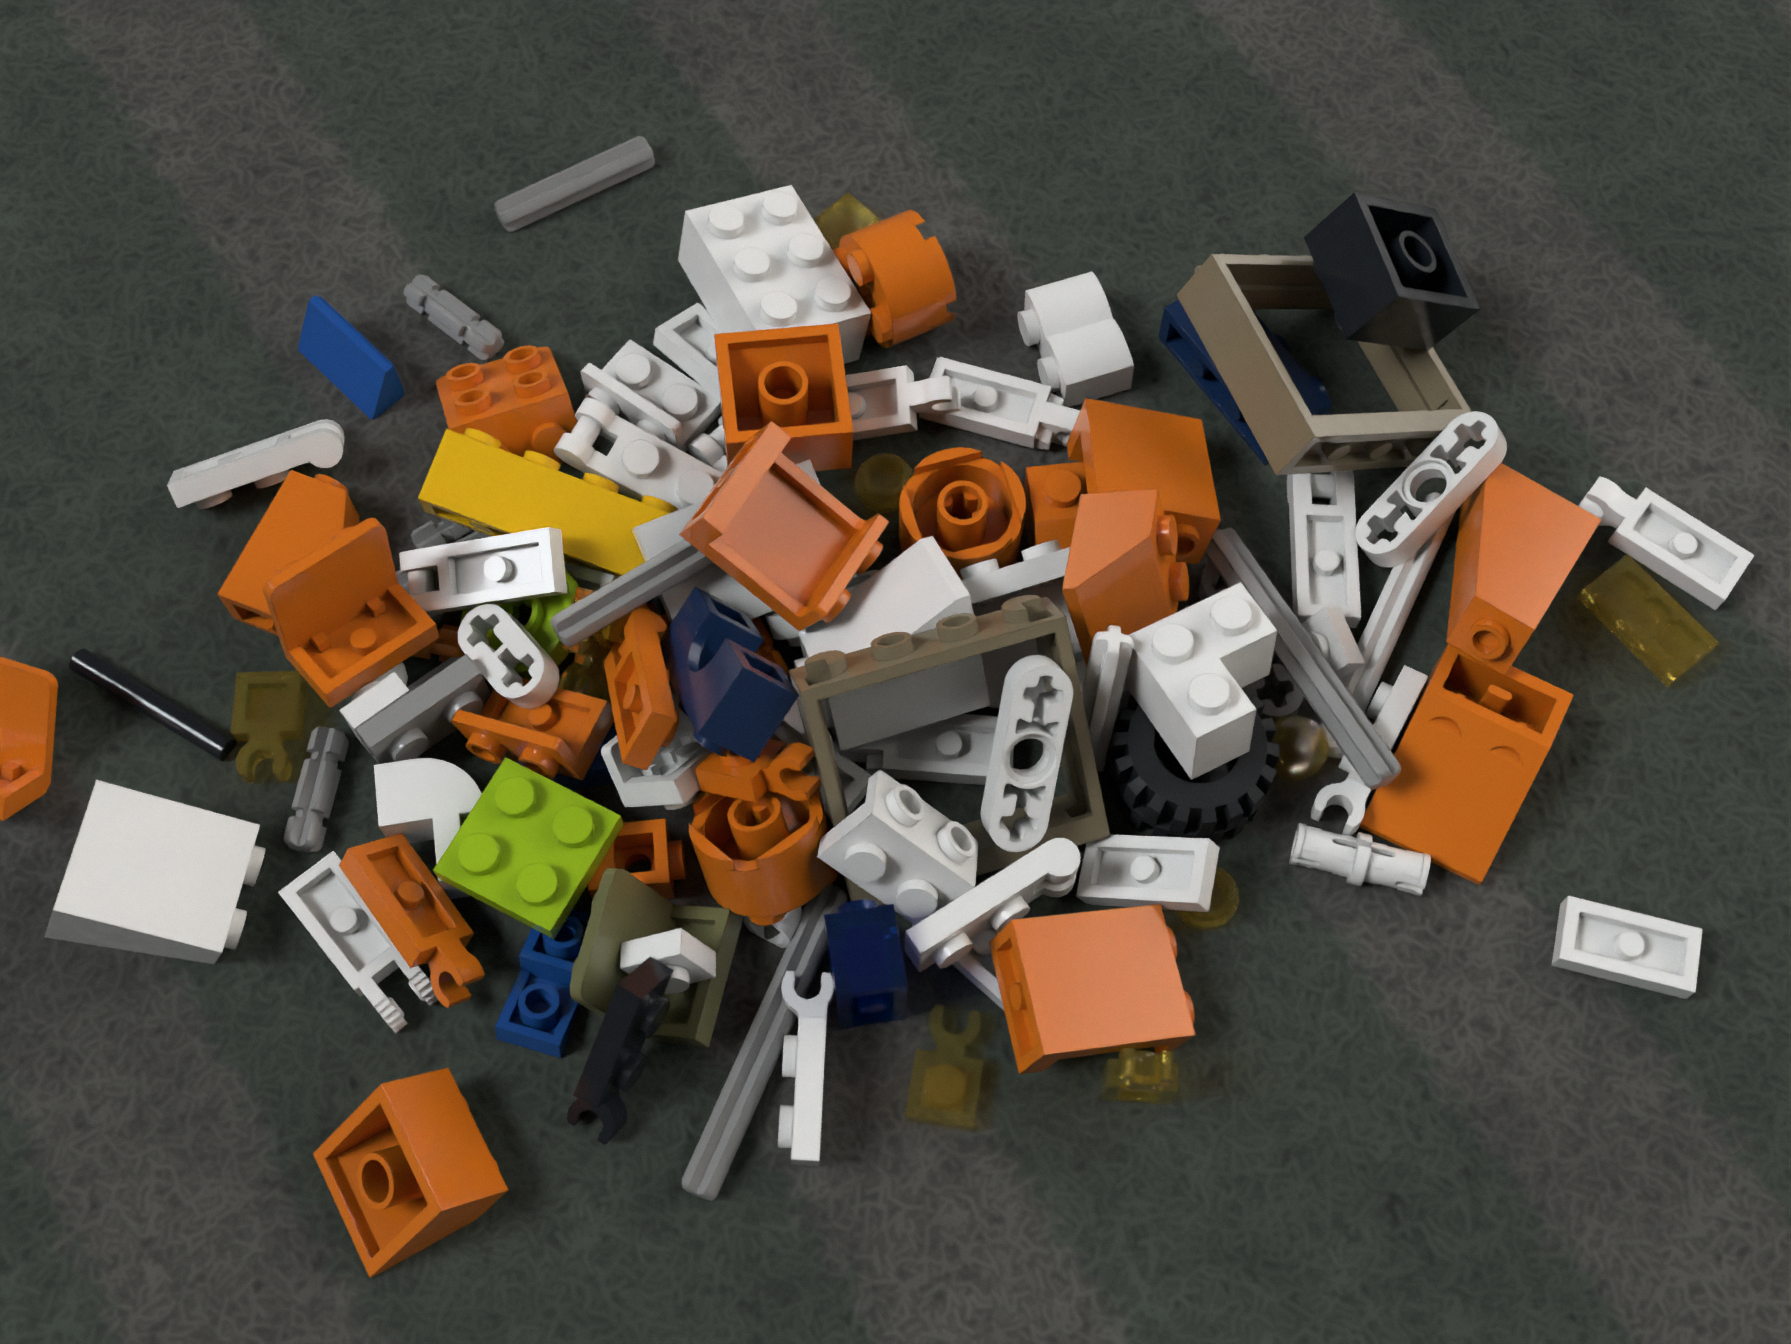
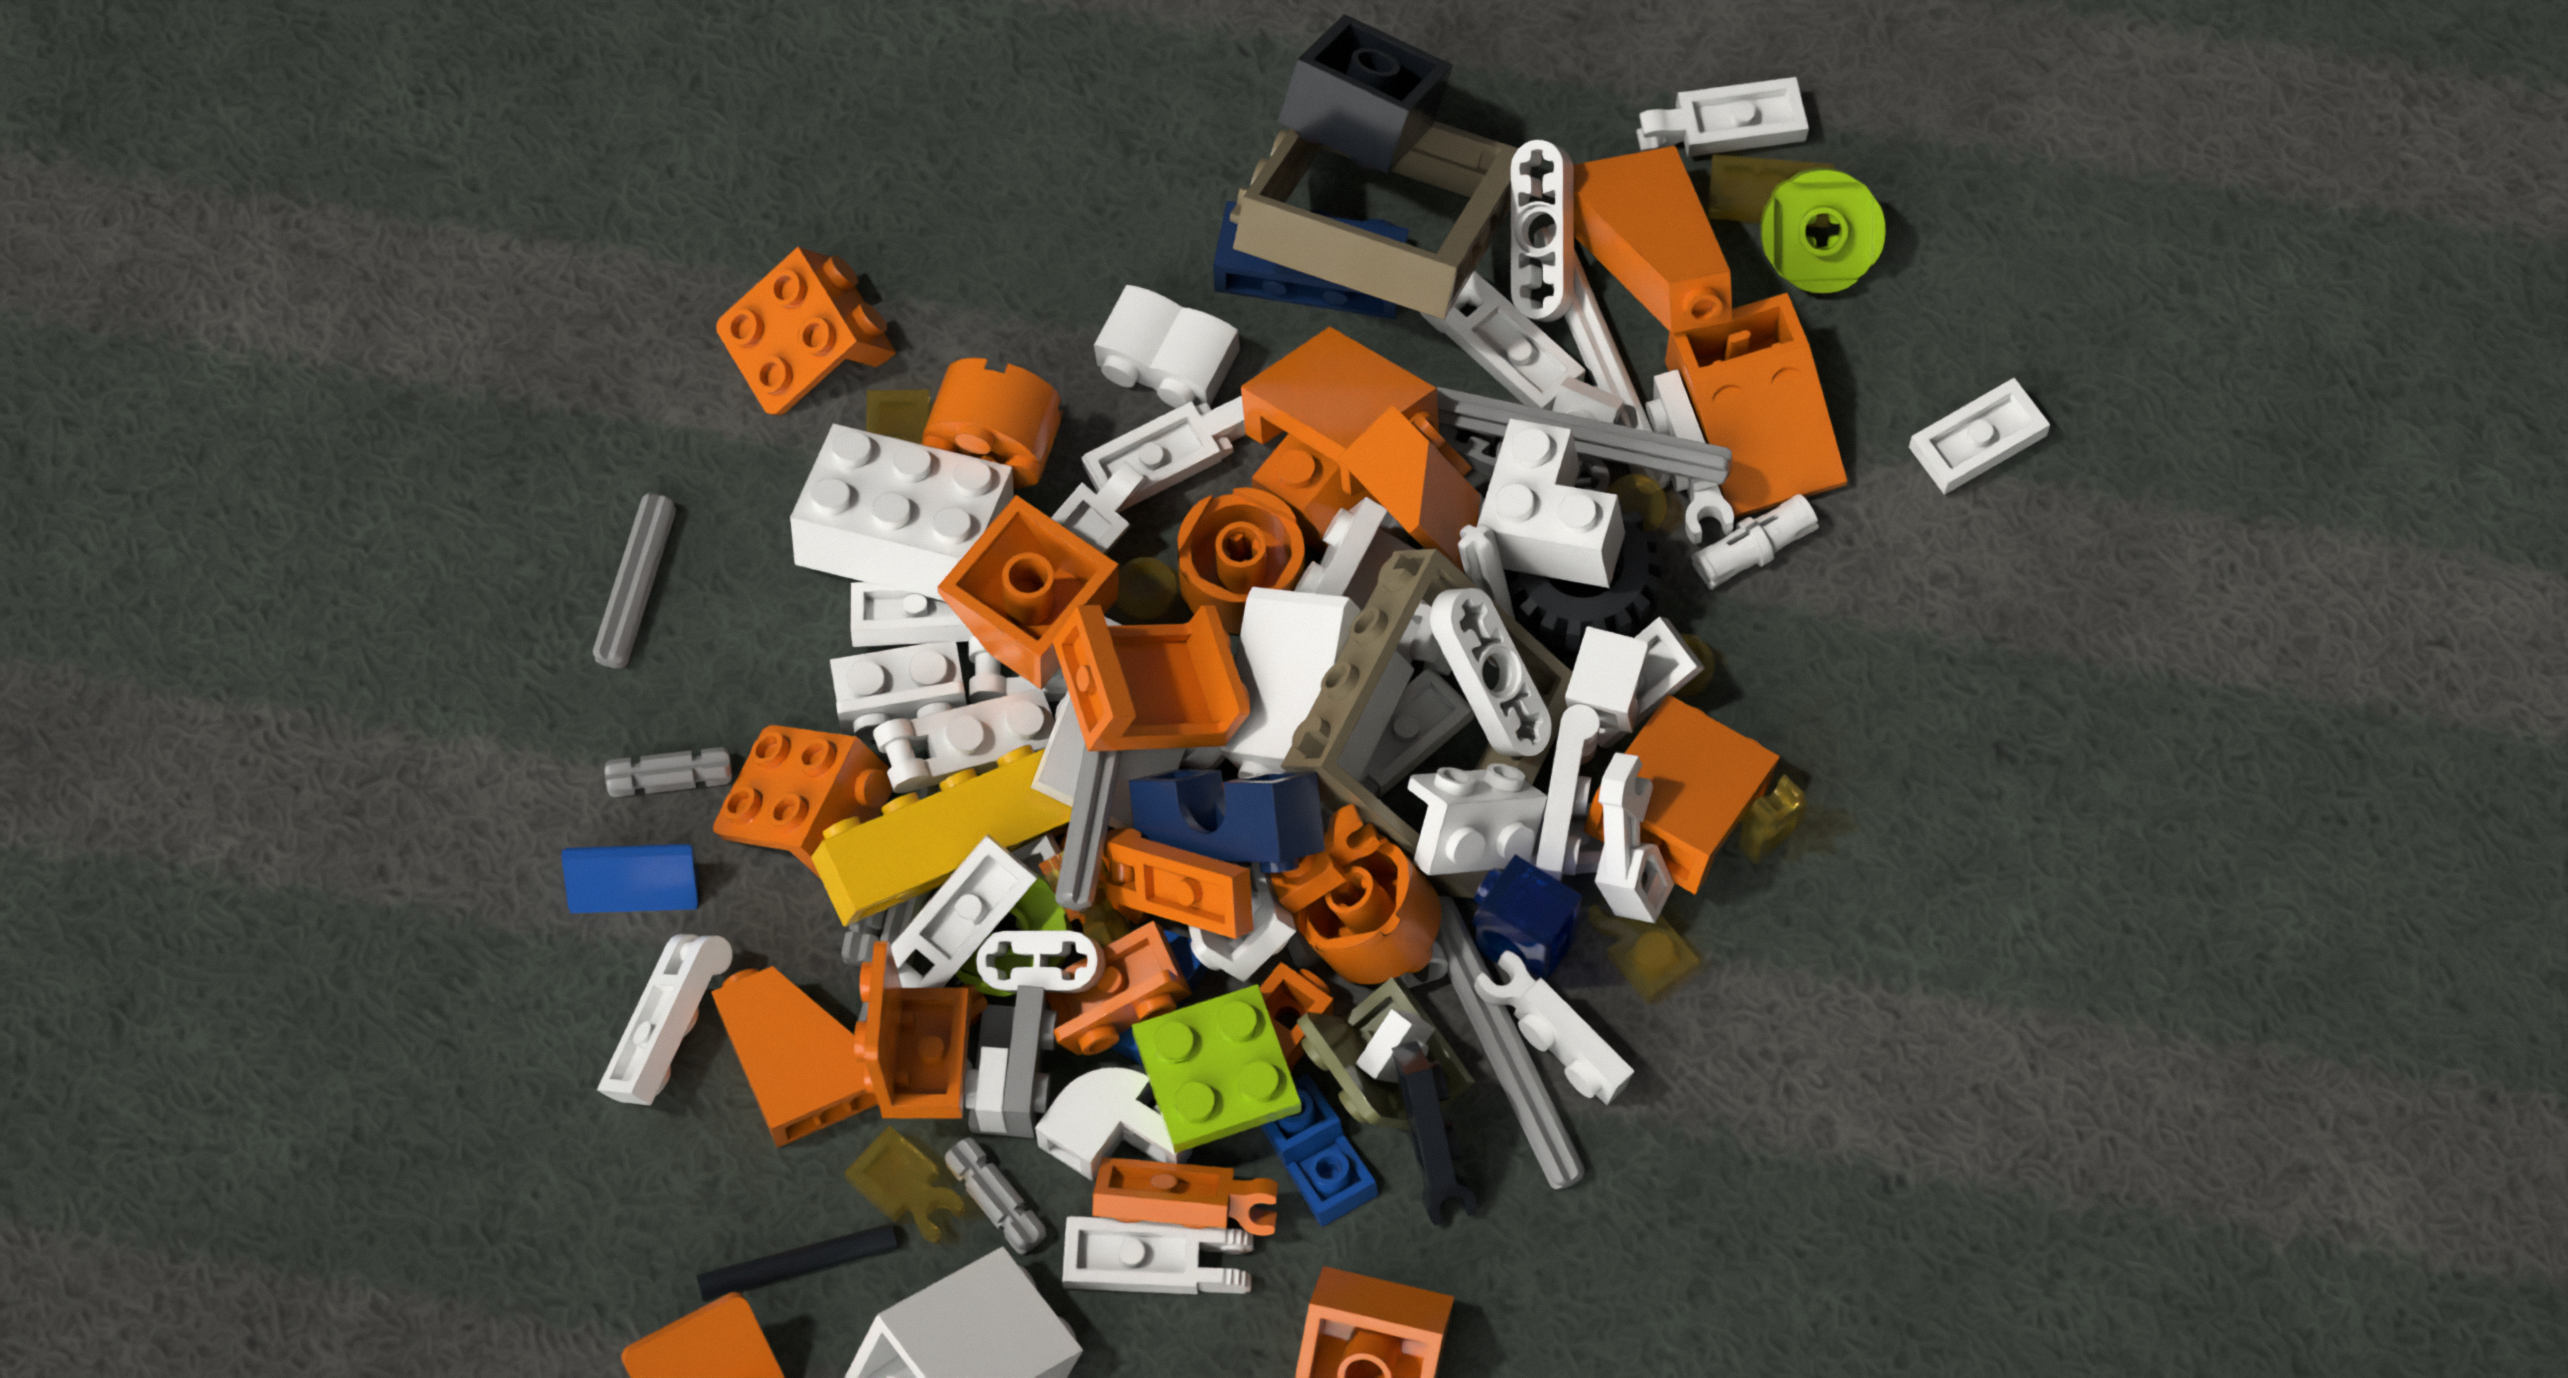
camera: 45 degrees left, 0 degrees up
(859, 114) = (801, 328): none -> orange bracket
(978, 1002) = (1629, 871): none -> white piece
(1118, 844) = (1608, 677): none -> white panel
(1660, 718) = (1795, 206): none -> lime plate

